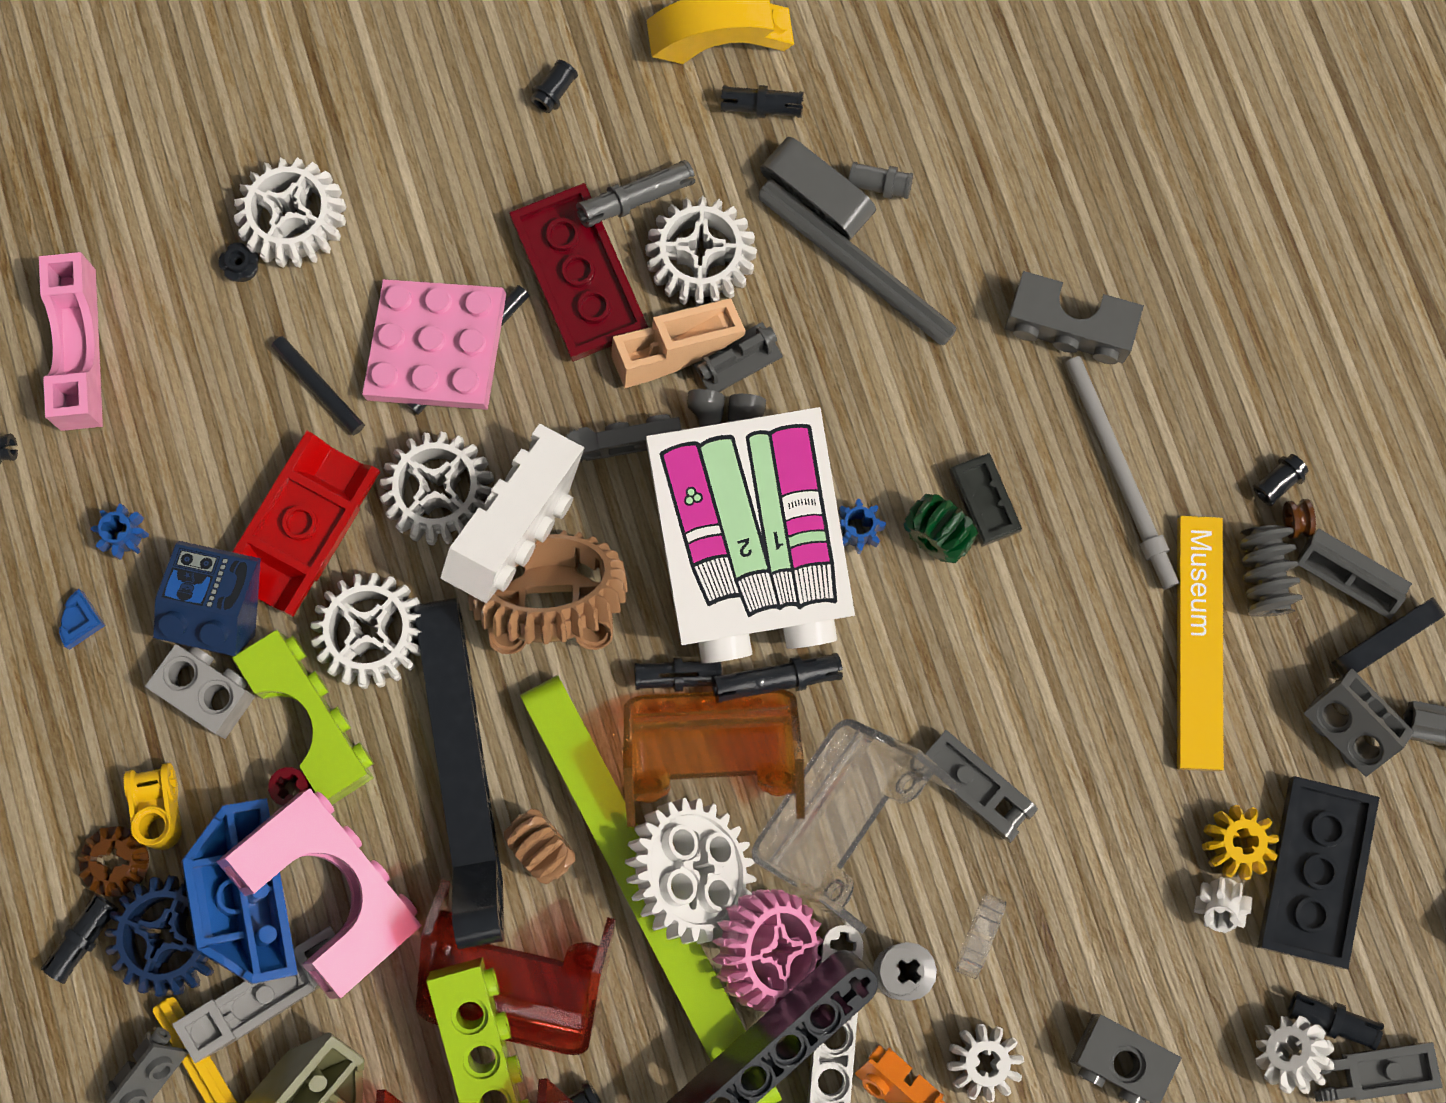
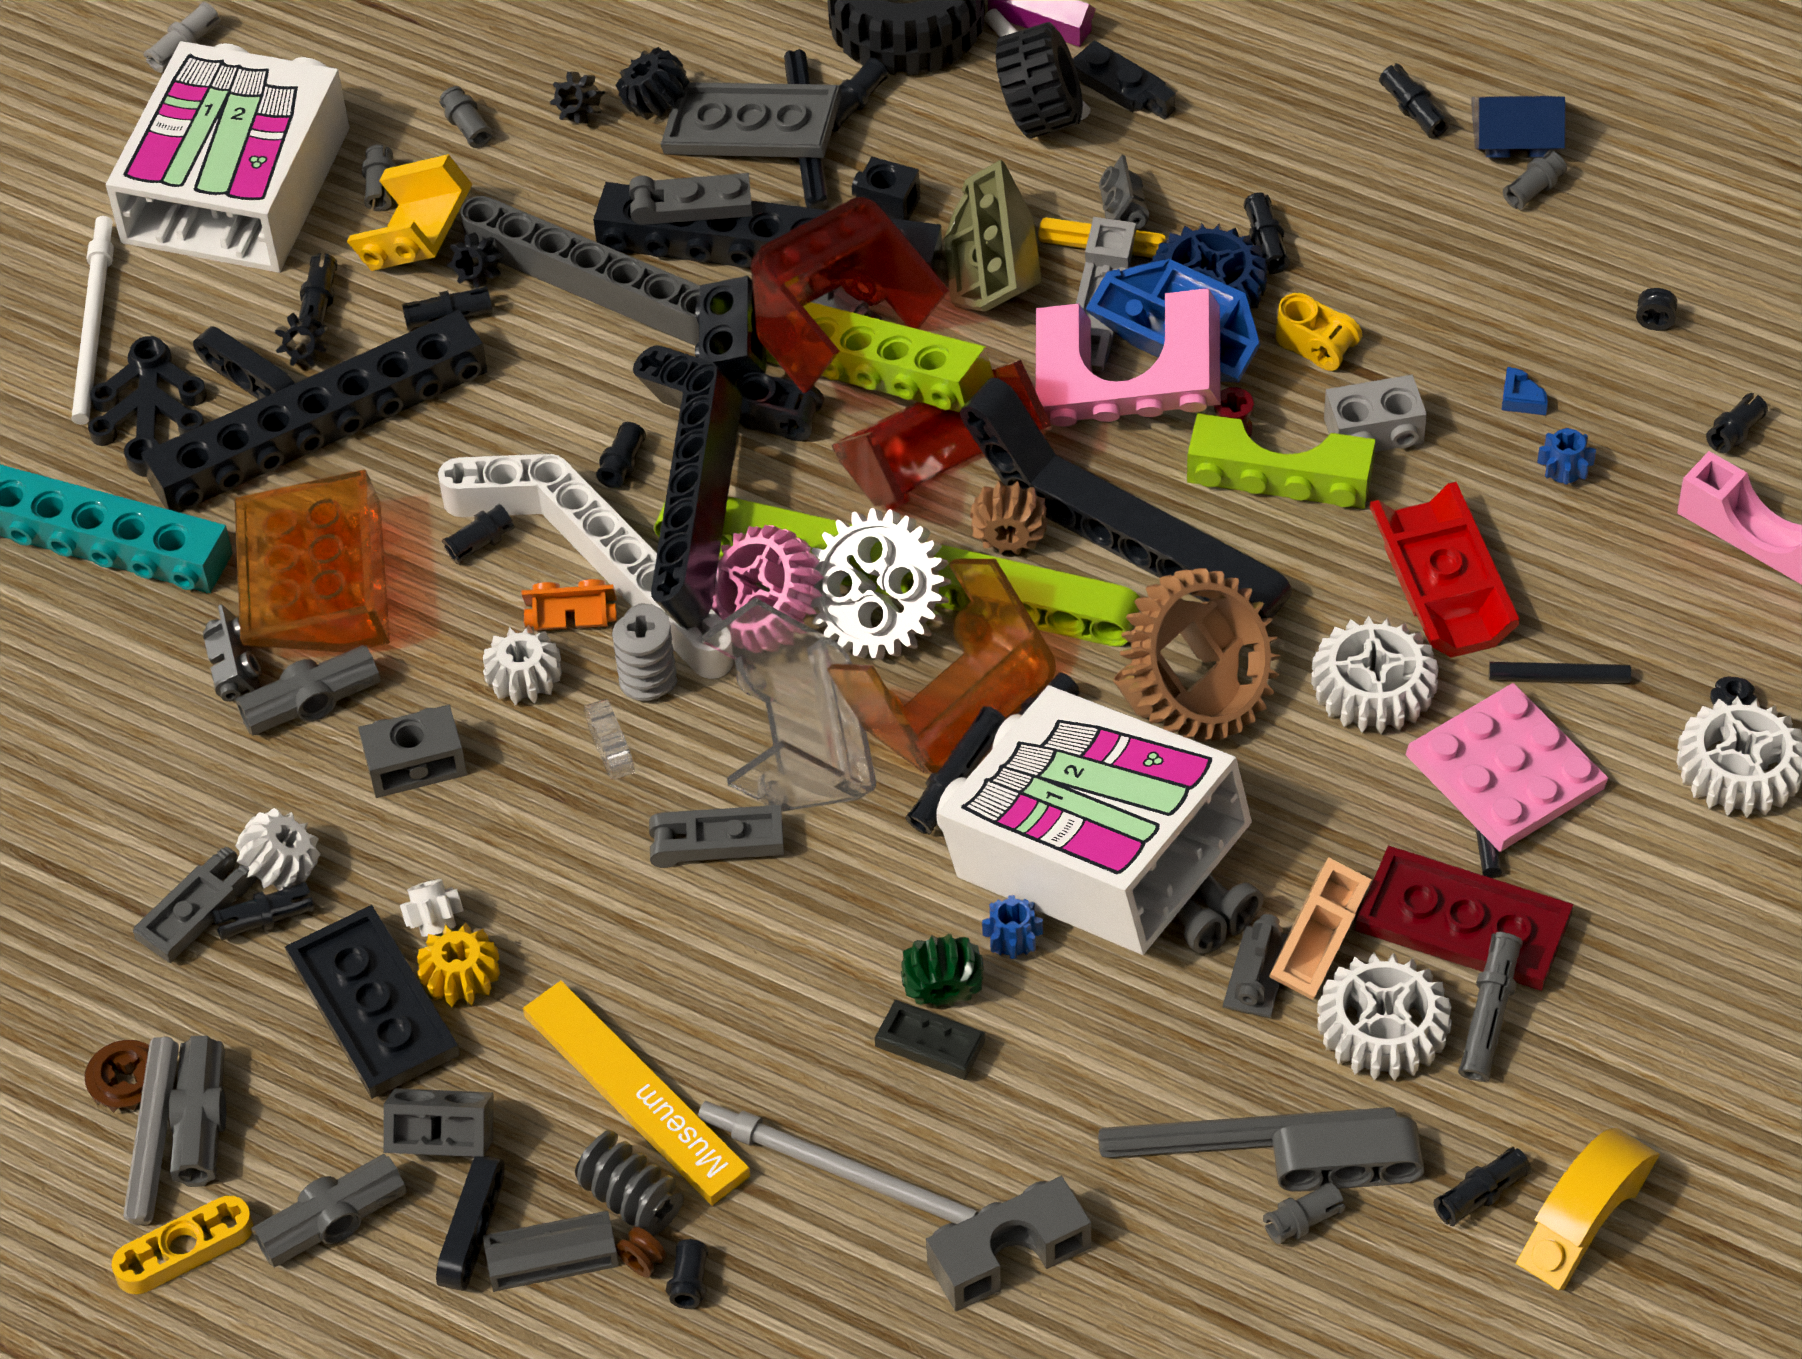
camera: 140 degrees right, 25 degrees down
(122, 877) = (1323, 286): reddish brown gear -> none
(208, 599) = (1438, 453): dark blue slope -> none
(356, 645) = (1327, 534): white gear -> none
(514, 516) = (1277, 663): white wedge -> none
(549, 92) = (1665, 1028): black pin -> none
(621, 437) = (1274, 828): dark grey hinge -> none

